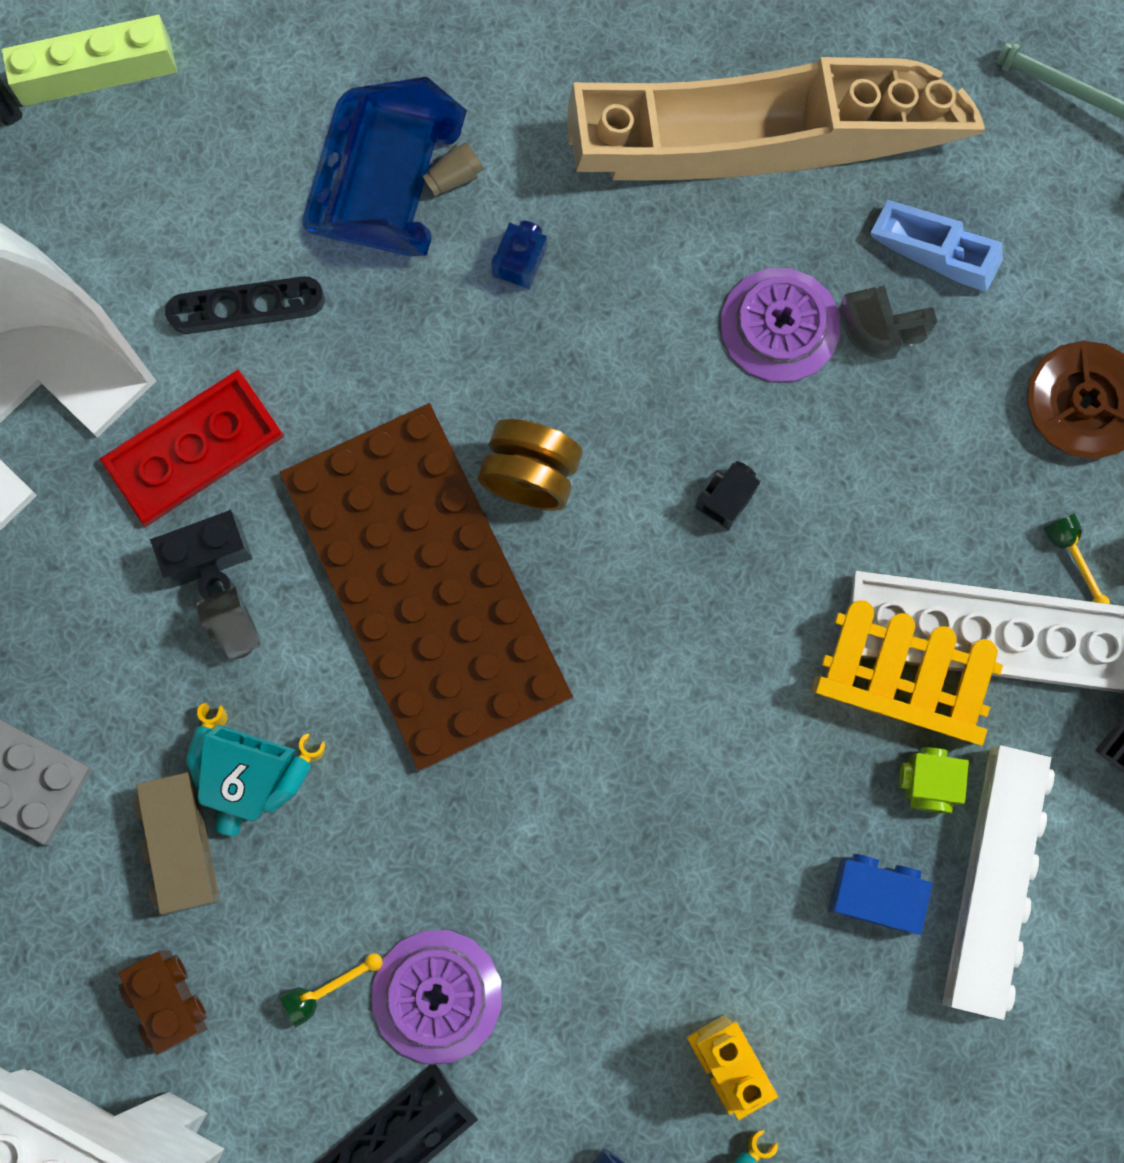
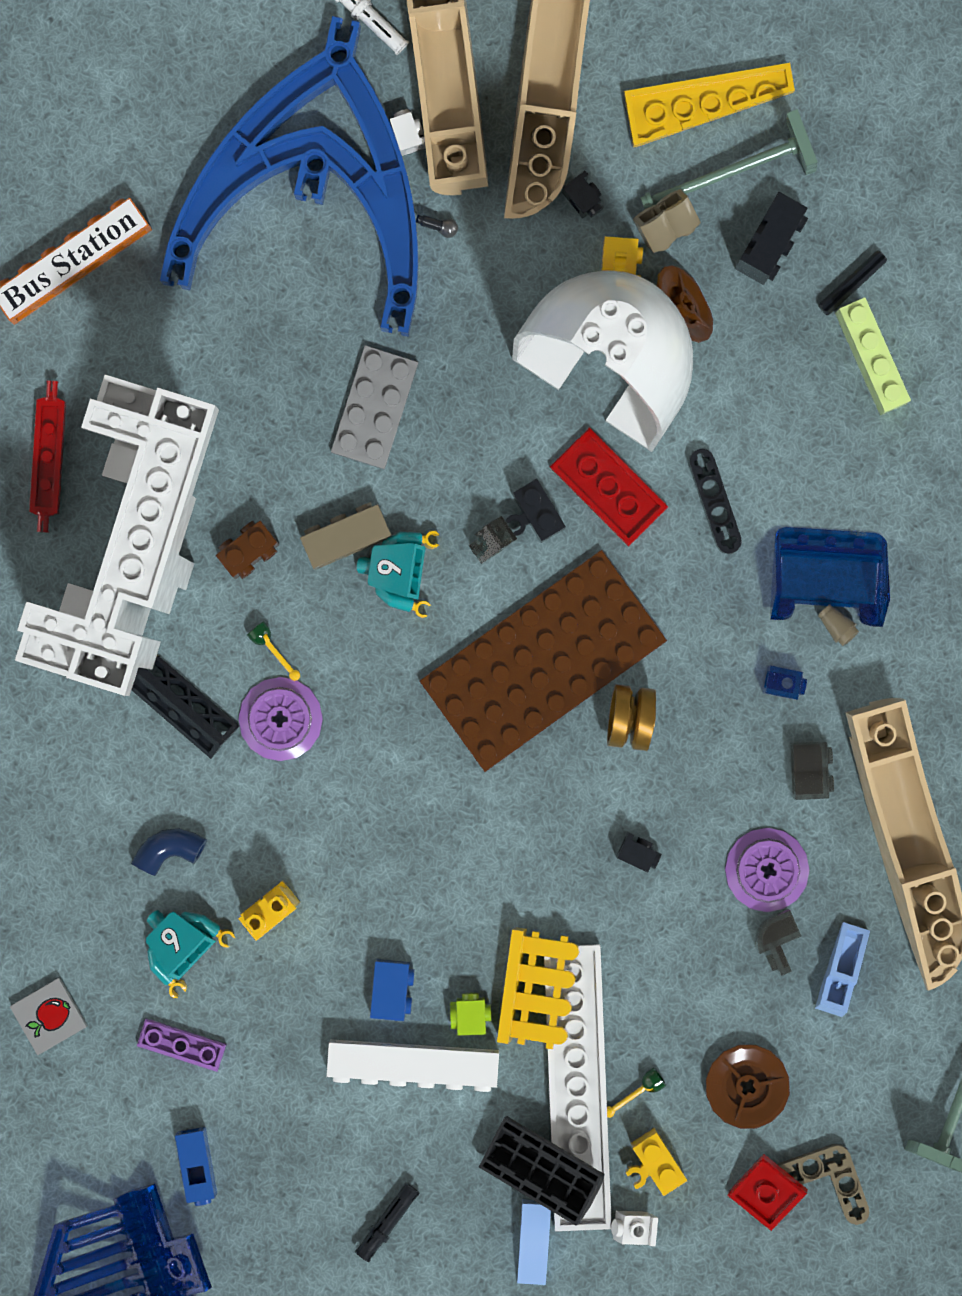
camera: 80 degrees right, 10 degrees up
(650, 239) = (810, 770): none -> clear smoke brick

